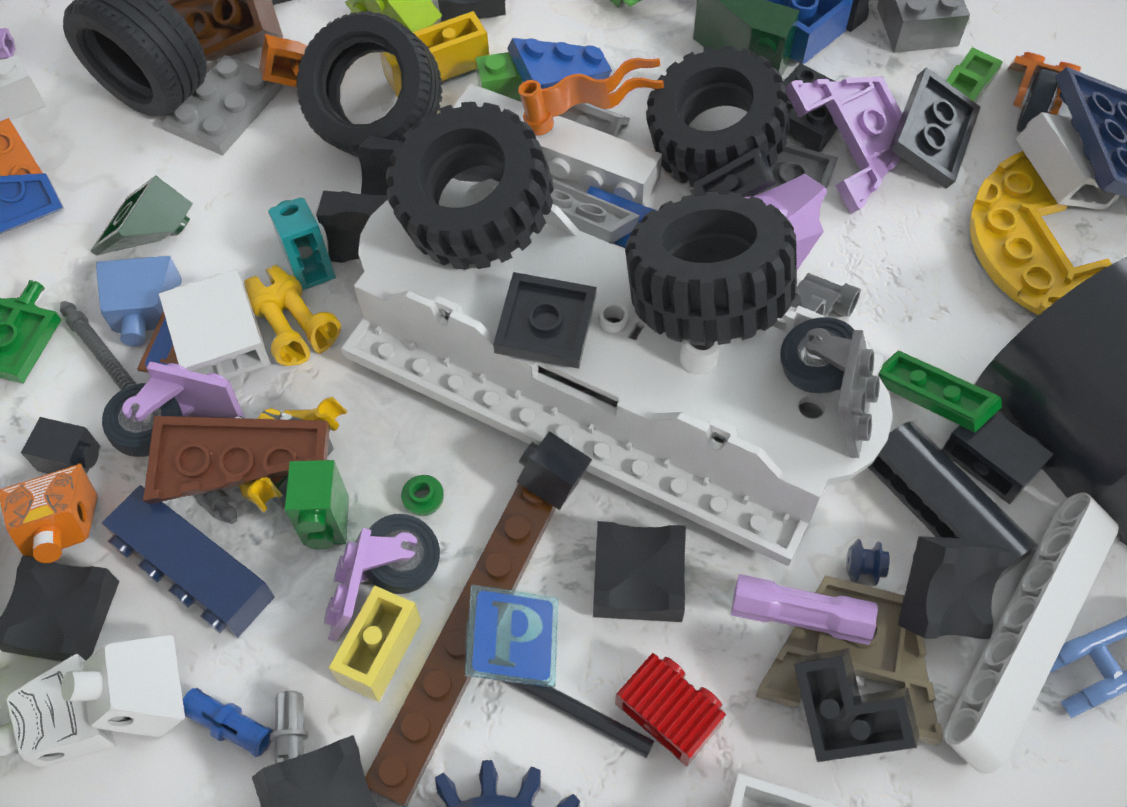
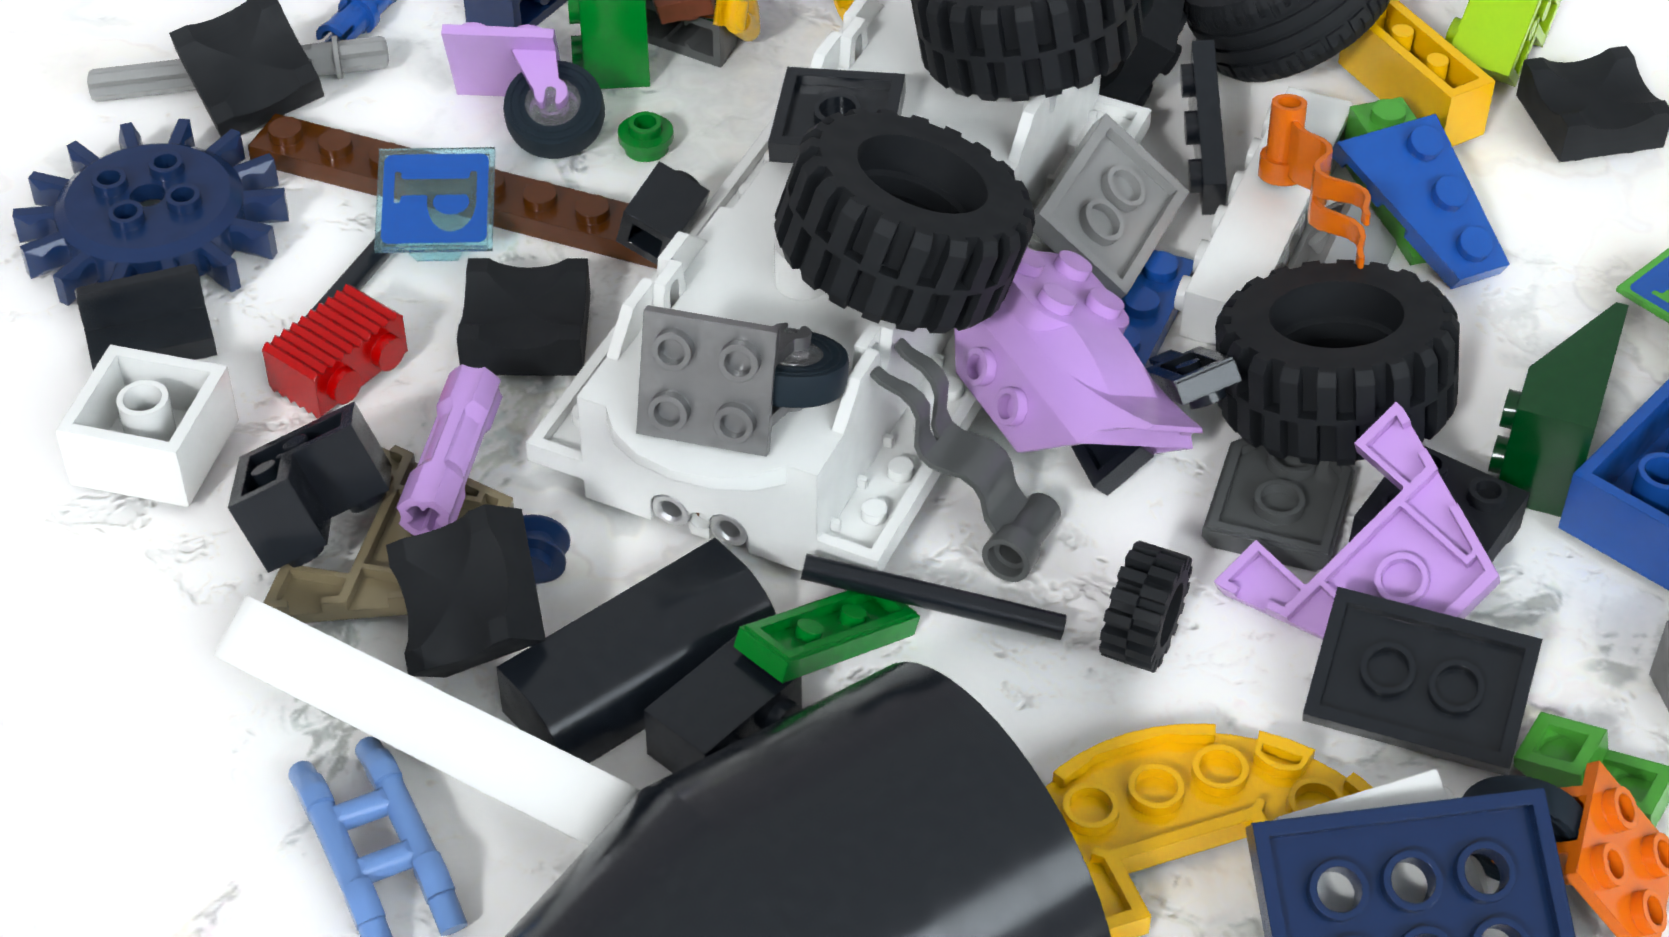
camera: 85 degrees right, 15 degrees down
(376, 643) = (433, 95): light yellow brick -> none
(892, 338) = (933, 596): none -> black bar
(912, 219) = (1145, 606): none -> black tyre

